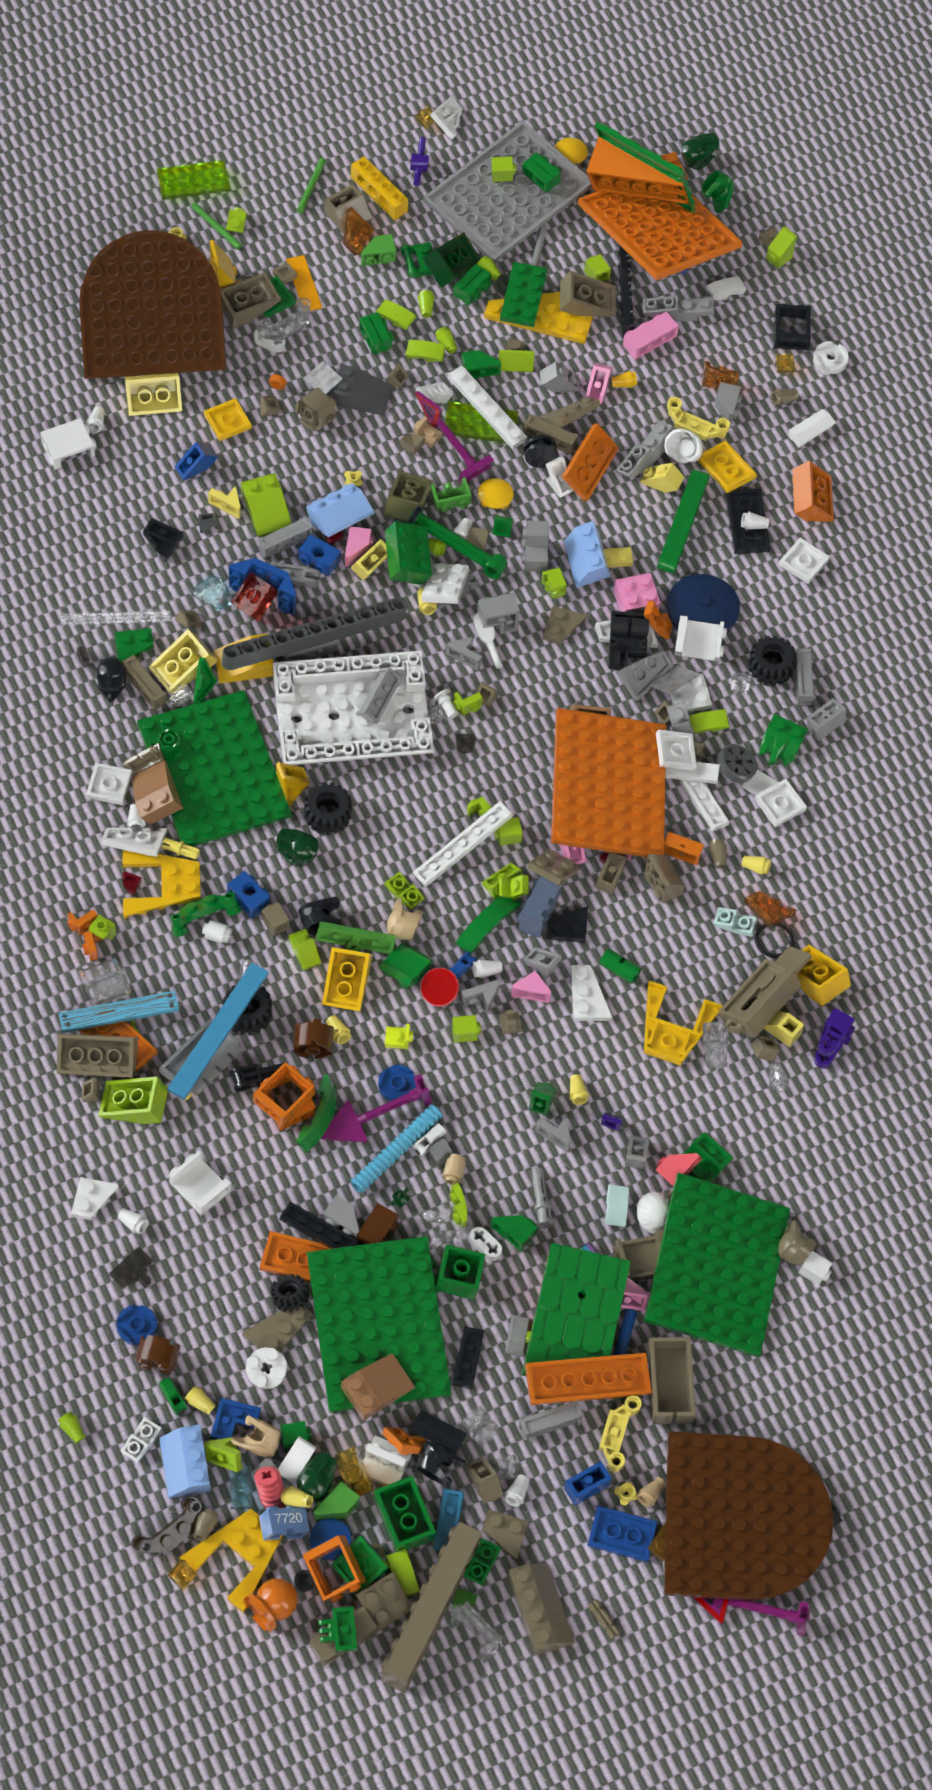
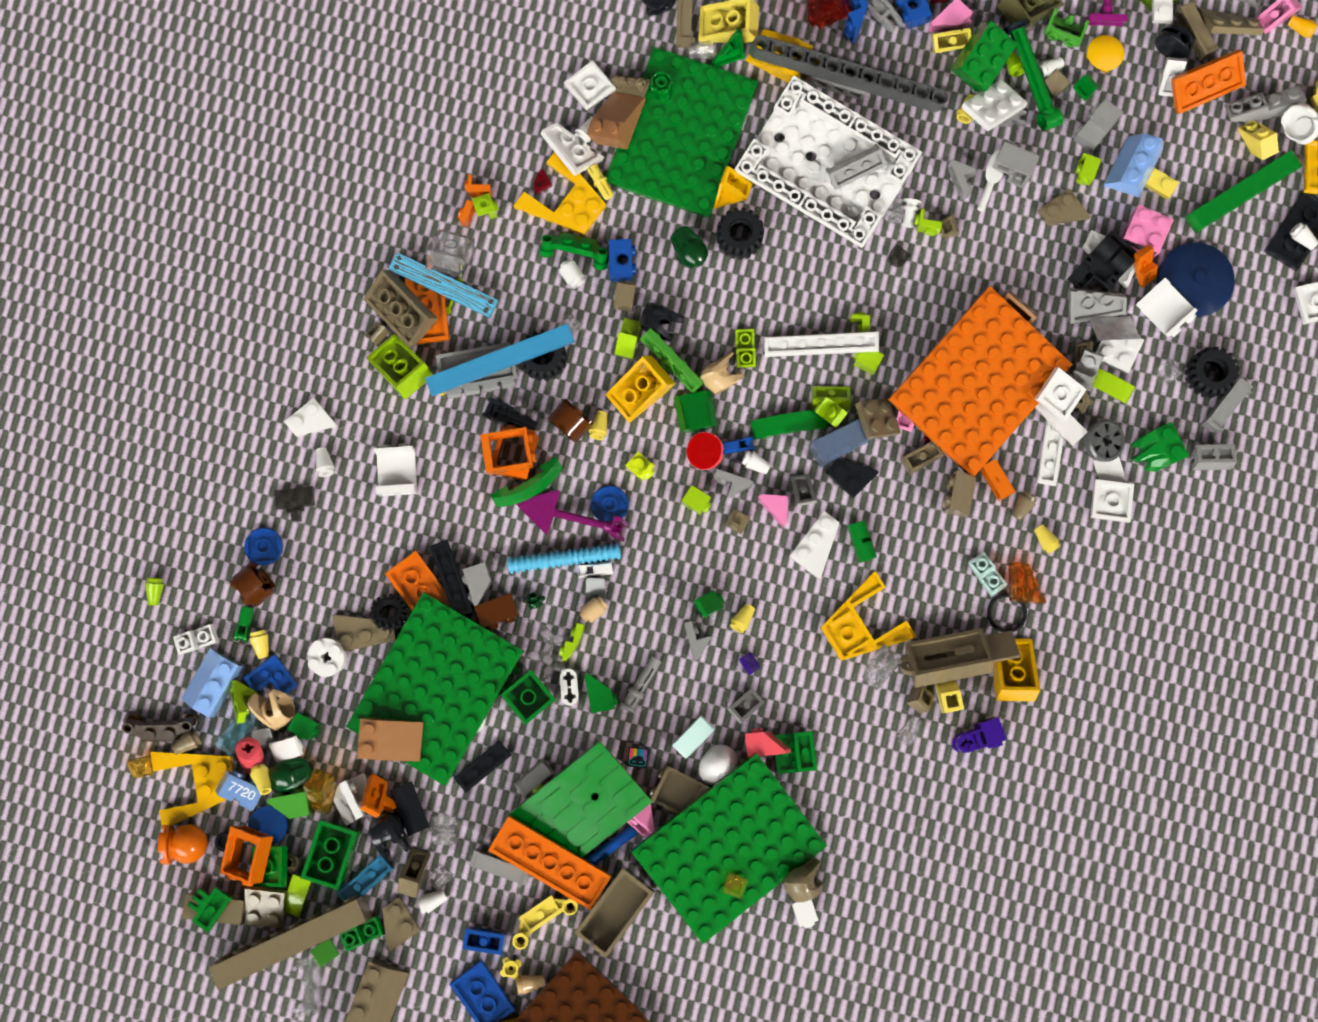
camera: 50 degrees right, 20 degrees up
(746, 1284) = (734, 885): none -> clear yellow plate

